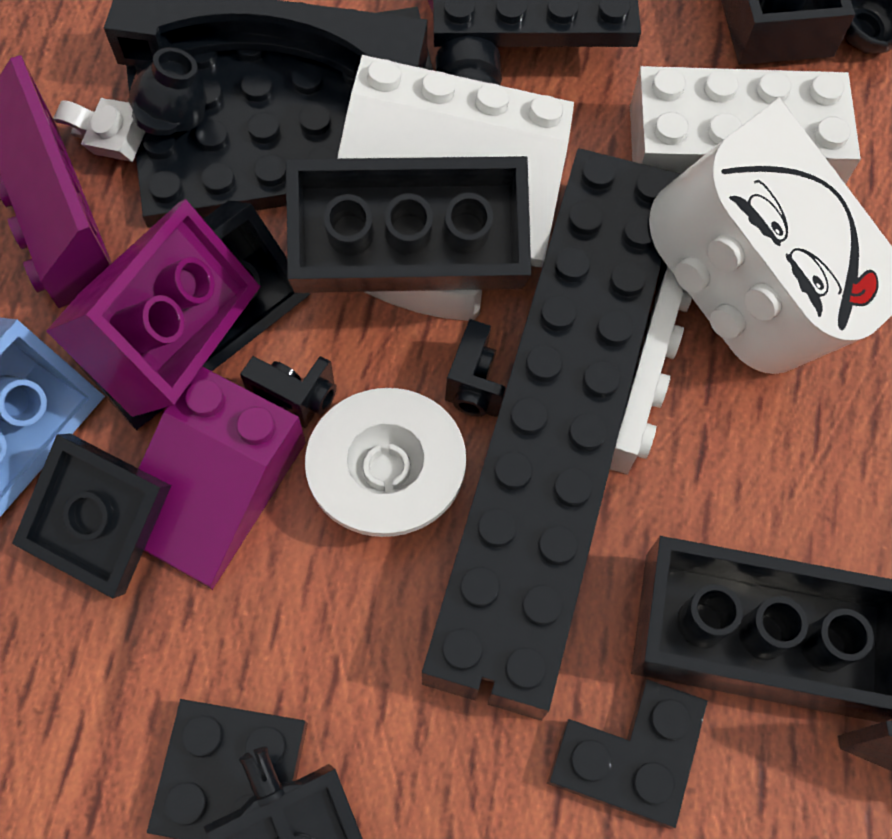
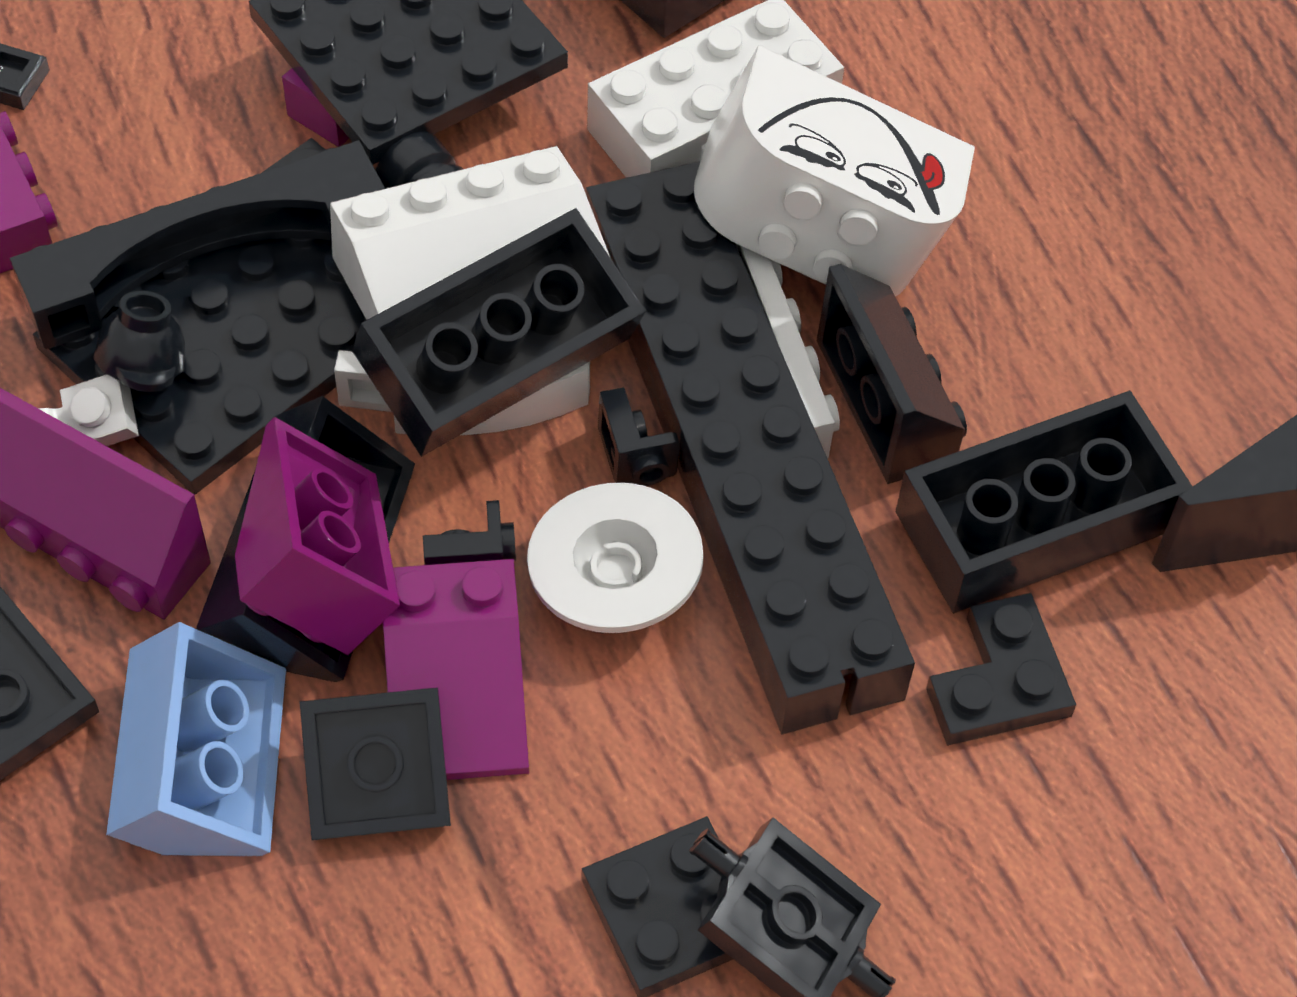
camera: 35 degrees left, 10 degrees down
(718, 439) = (886, 374): none -> black slope

